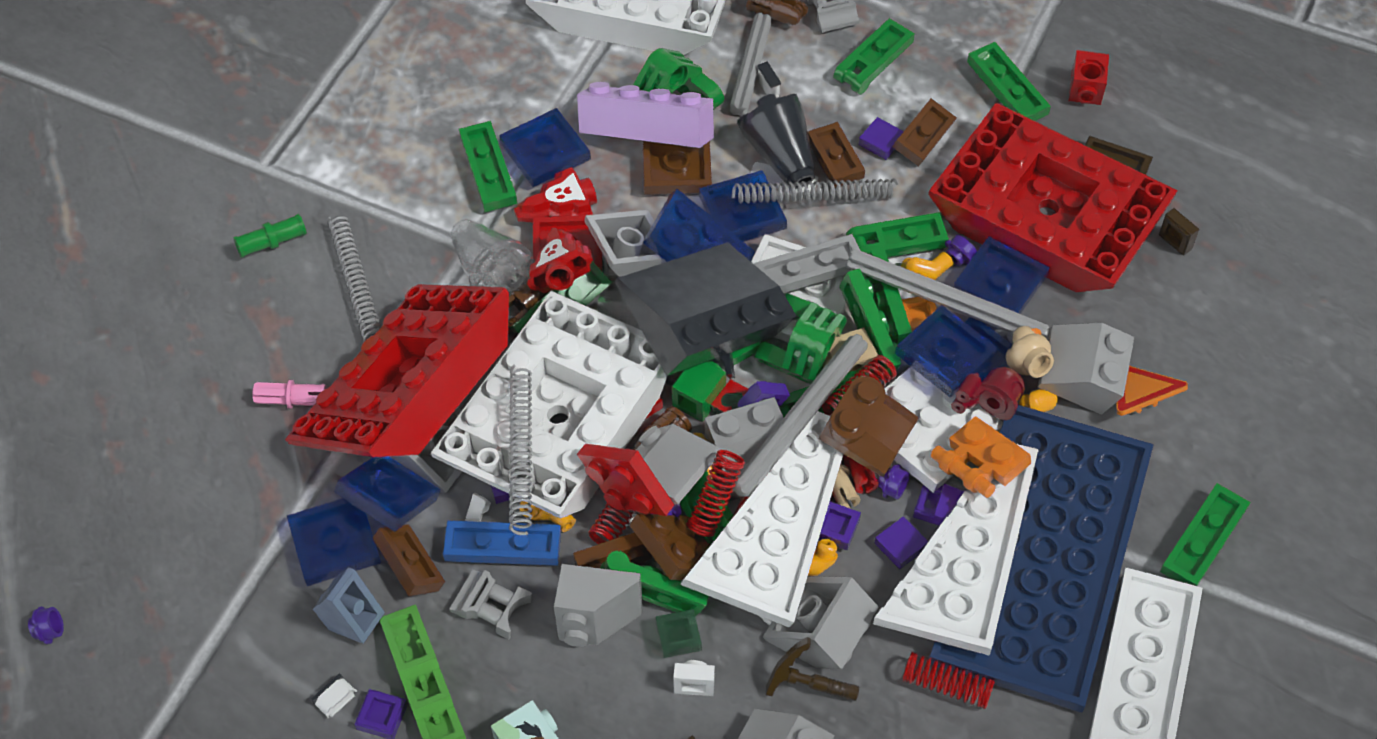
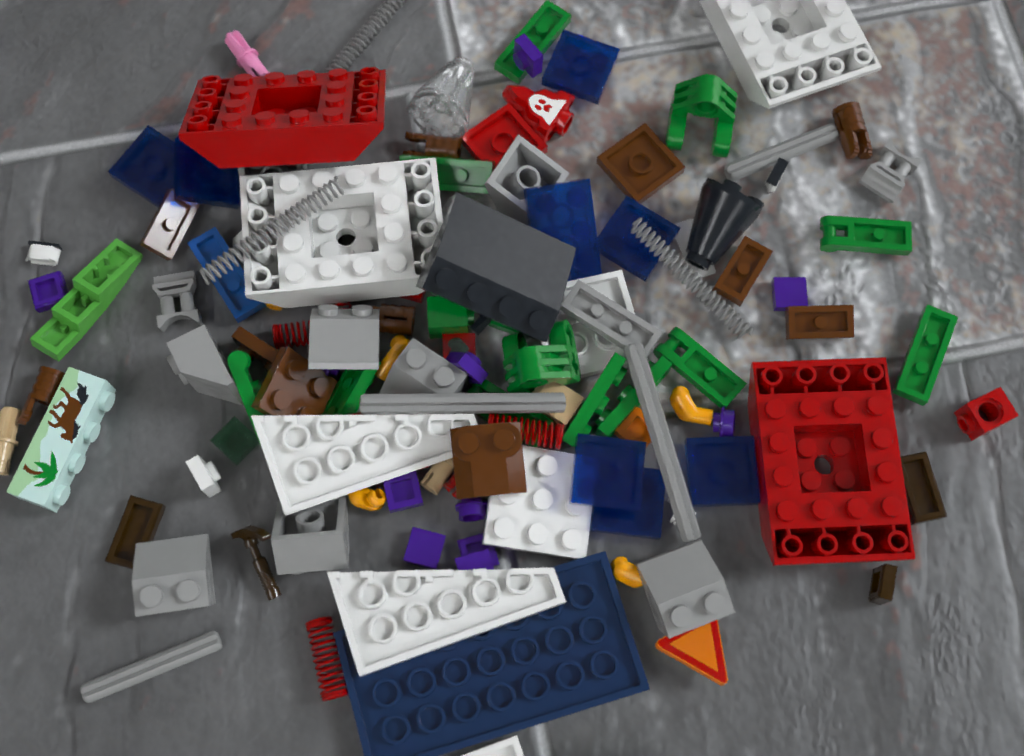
camera: 50 degrees right, 15 degrees up
(349, 607) = (99, 214): sand blue slope -> none
(507, 170) = (527, 56): none -> dark purple plate
(559, 262) = (470, 144): red rock -> none
(625, 479) = (296, 316): red plate -> none
(646, 115) = (654, 113): lavender brick -> none
(694, 522) = (363, 390): red piece -> none
(987, 449) = (532, 565): orange plate -> none
(994, 394) = (598, 536): dark red piece -> none
(1030, 352) = (657, 539): tan animal -> none

